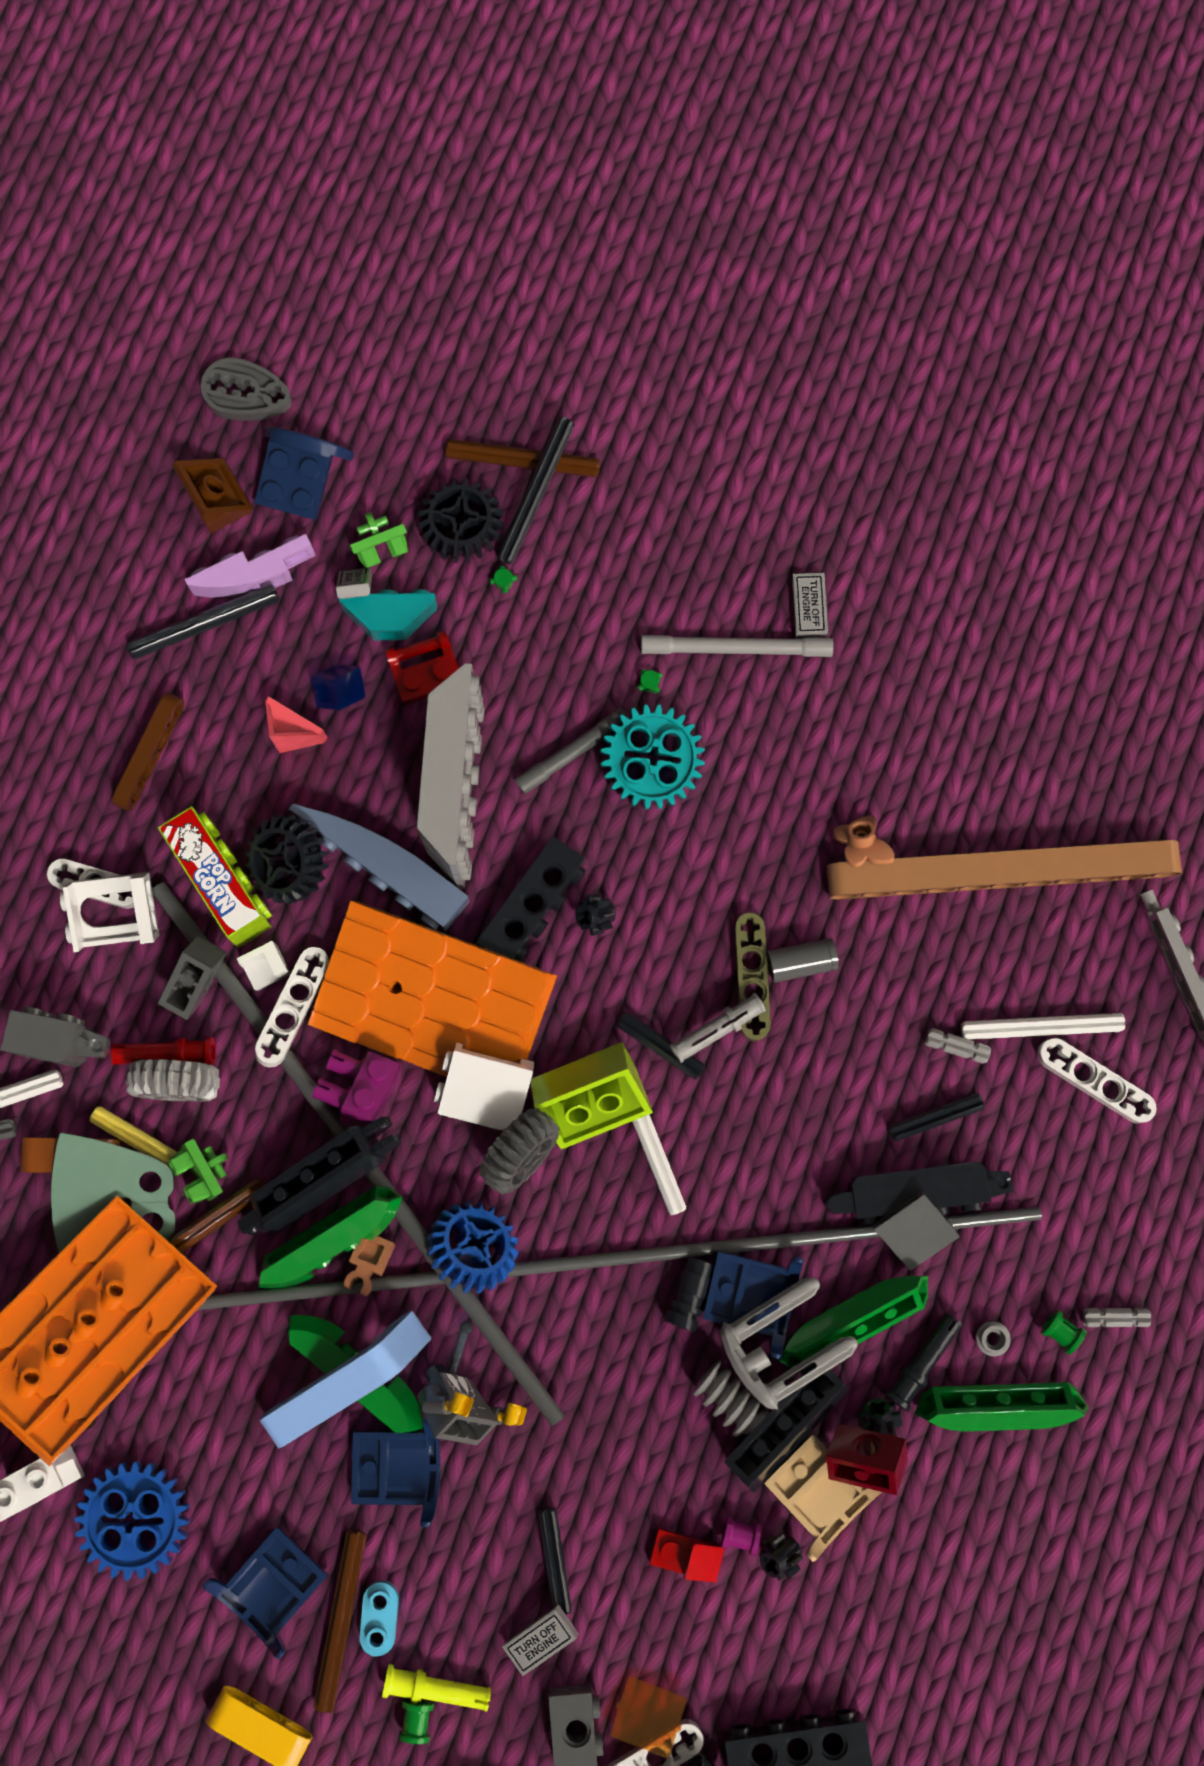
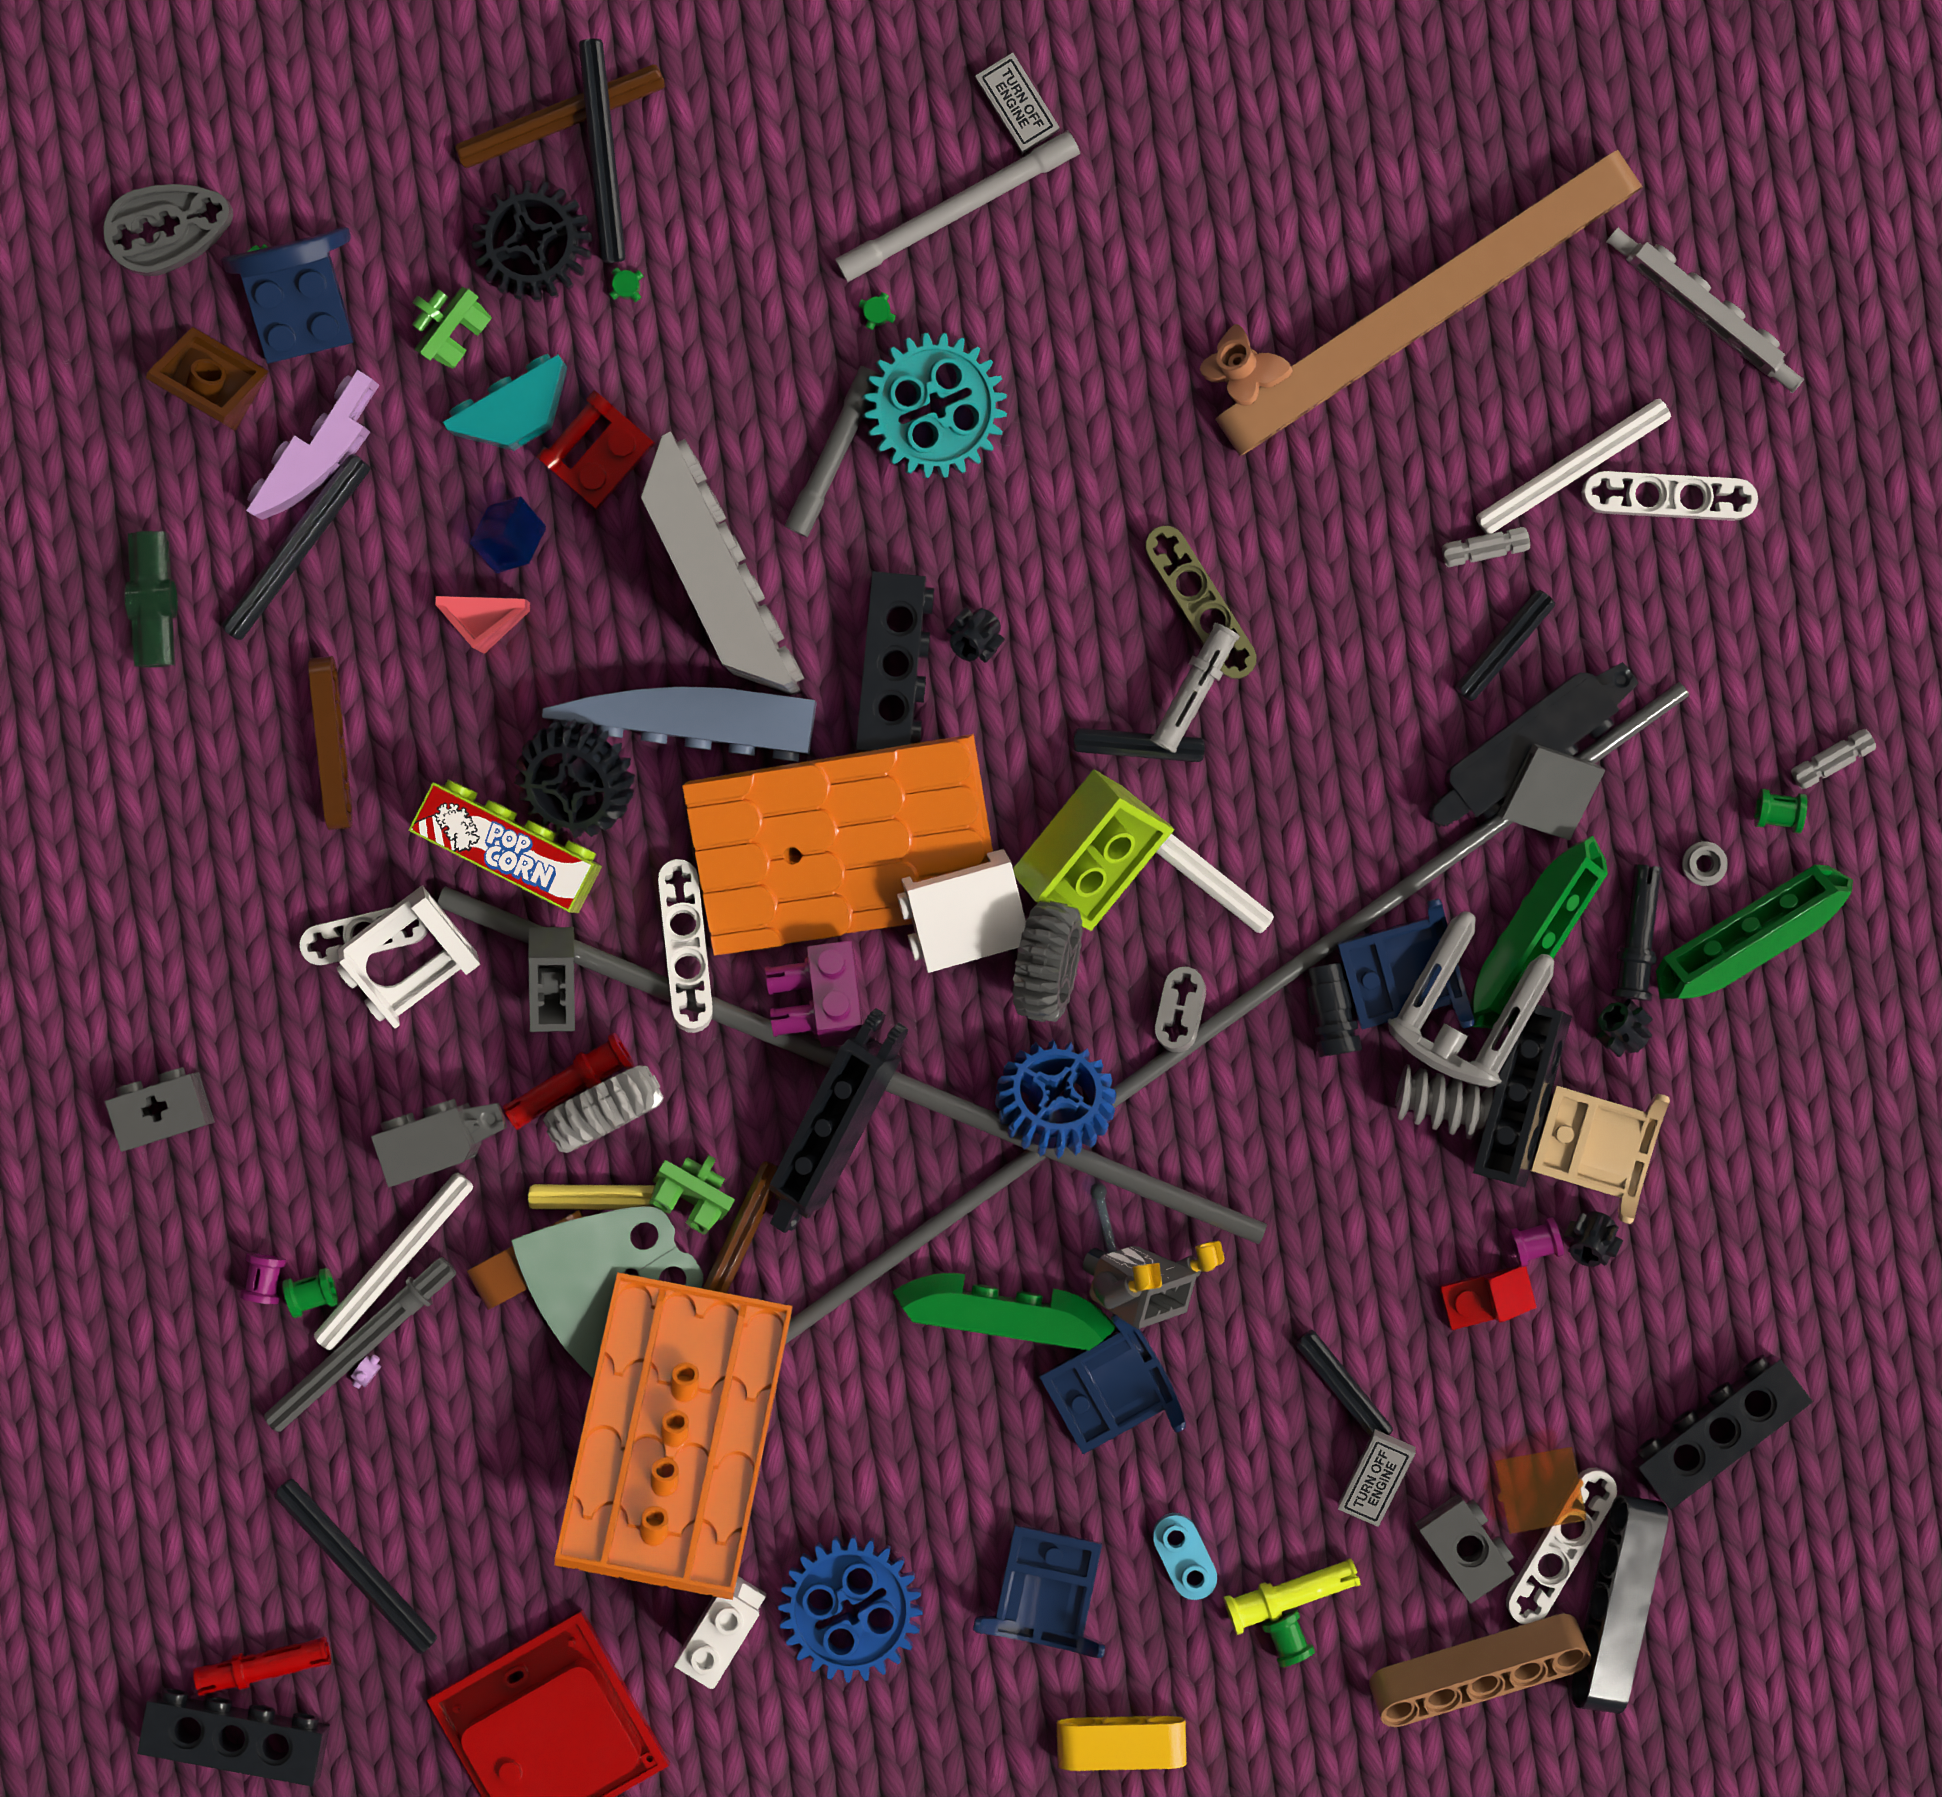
camera: 25 degrees left, 10 degrees up
(94, 602) = (151, 599): none -> clear green piece
(264, 965) = (623, 917): white panel -> none
(340, 1621) = (1143, 1582): reddish brown axle -> none
(341, 1230) = (886, 1179): green brick -> none
(348, 1381) = (1004, 1326): light blue beam -> none
(354, 583) = (452, 397): light grey tile -> none
(369, 1258) = (944, 1175): nougat plate -> none
(583, 1230) = (1170, 1007): none -> light grey beam
(802, 960) = (1249, 550): dark grey pin -> none
(867, 1459) = (1631, 1079): dark red brick -> none

